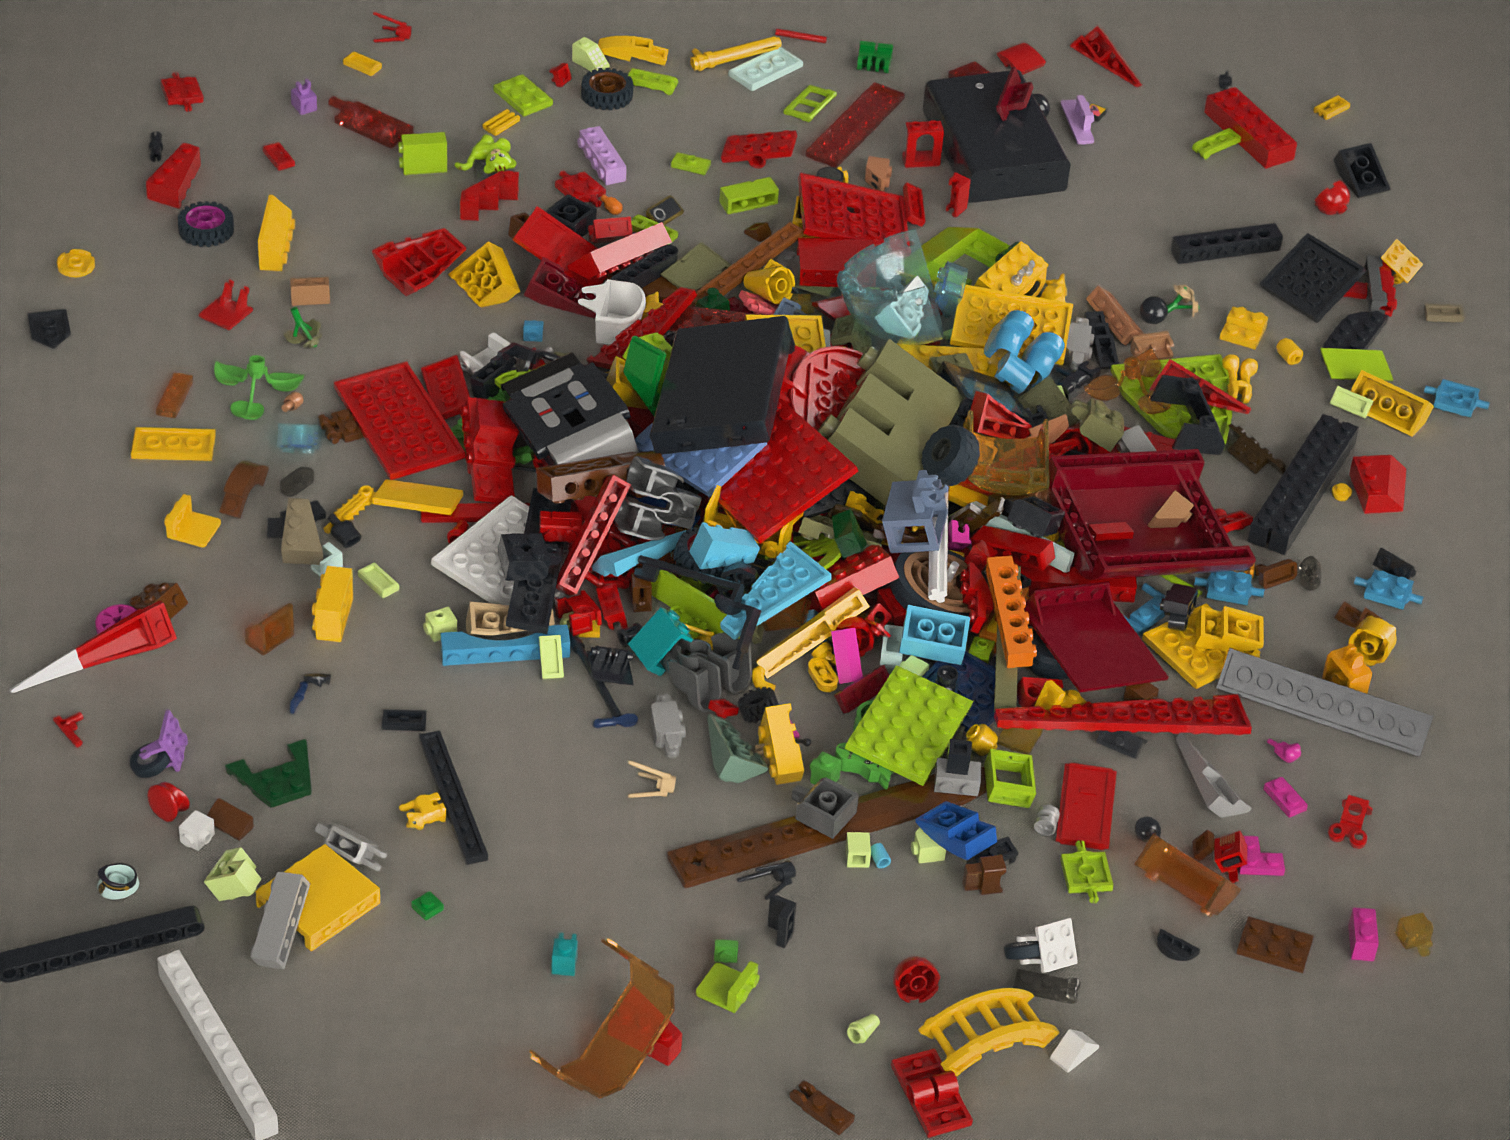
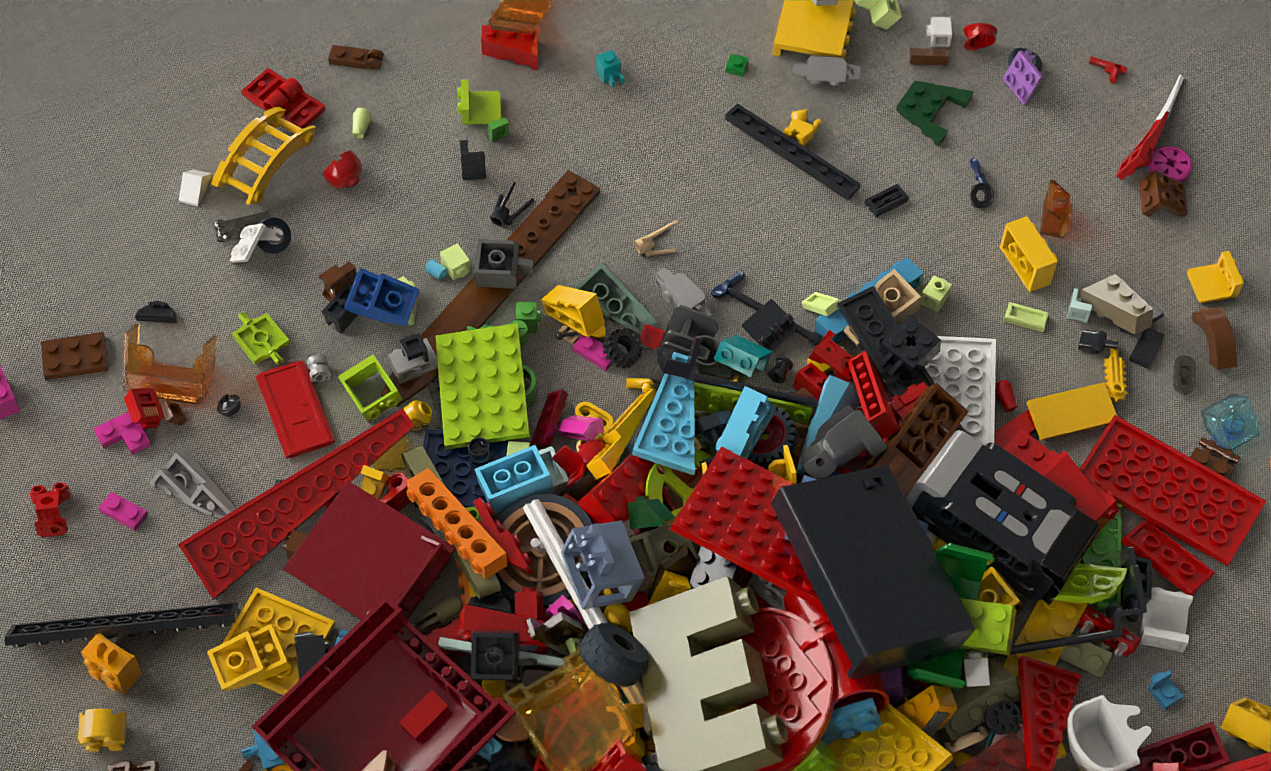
camera: 150 degrees right, 15 degrees up
(1287, 752) = (139, 558): dark pink piece -> none

